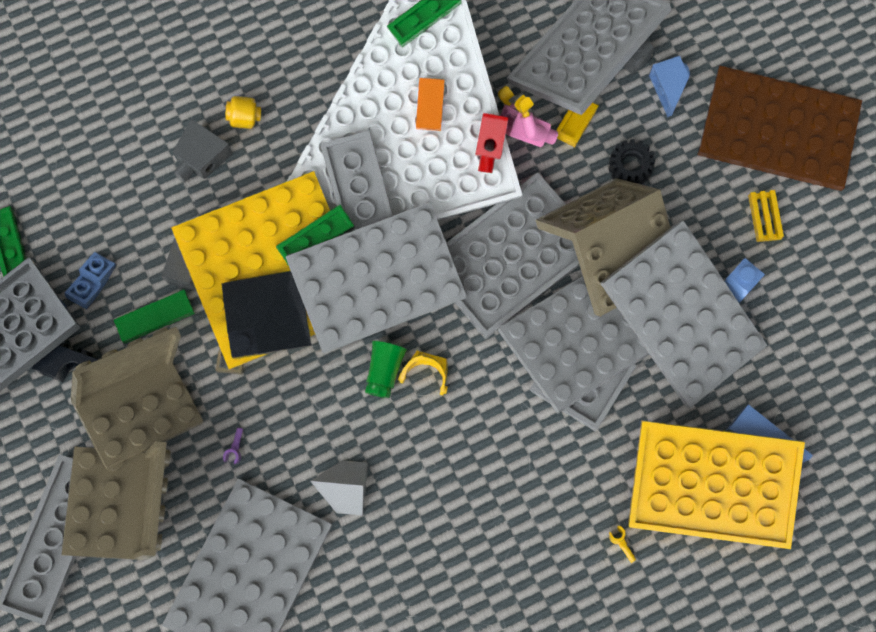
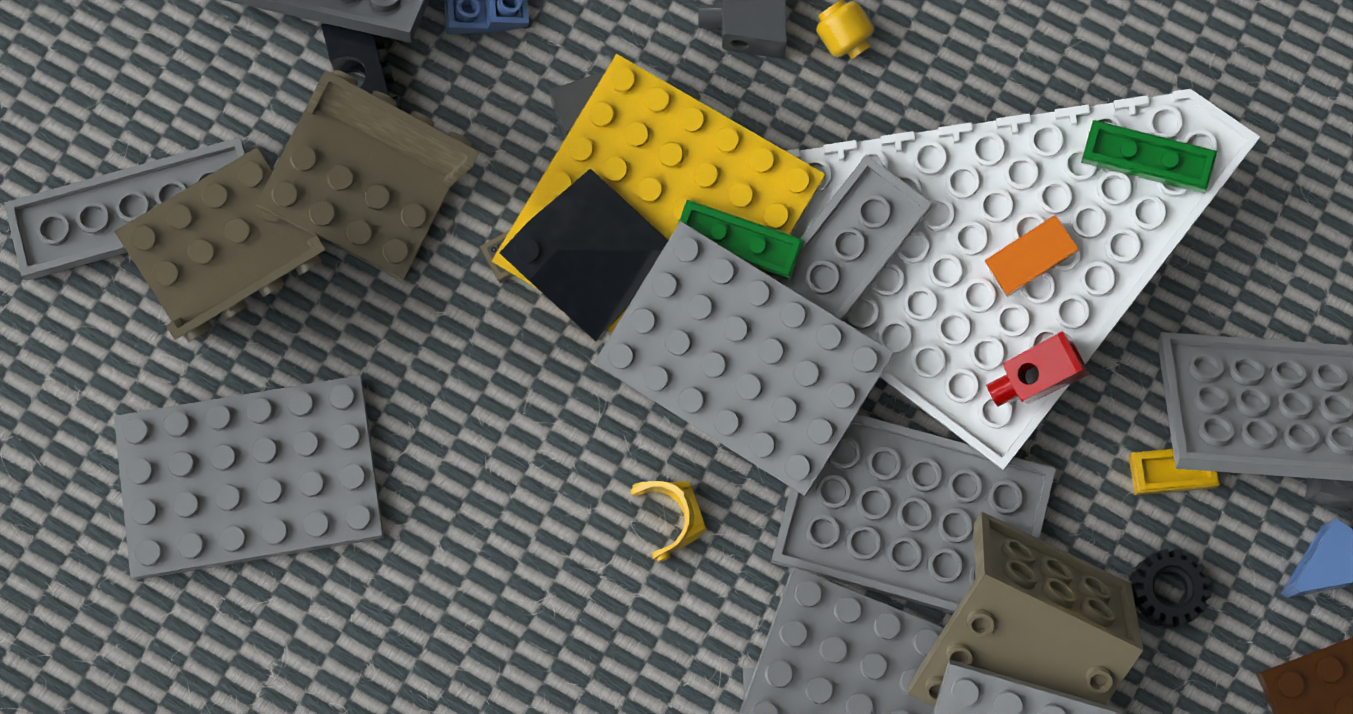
camera: 50 degrees right, 0 degrees up
(154, 316) = (496, 121): green tile -> none
(234, 447) = (396, 343): medium lavender hand -> none
(344, 486) = (442, 516): light grey slope -> none
(383, 368) = (631, 456): green plant -> none
(522, 123) = (1106, 402): bright pink torso -> none

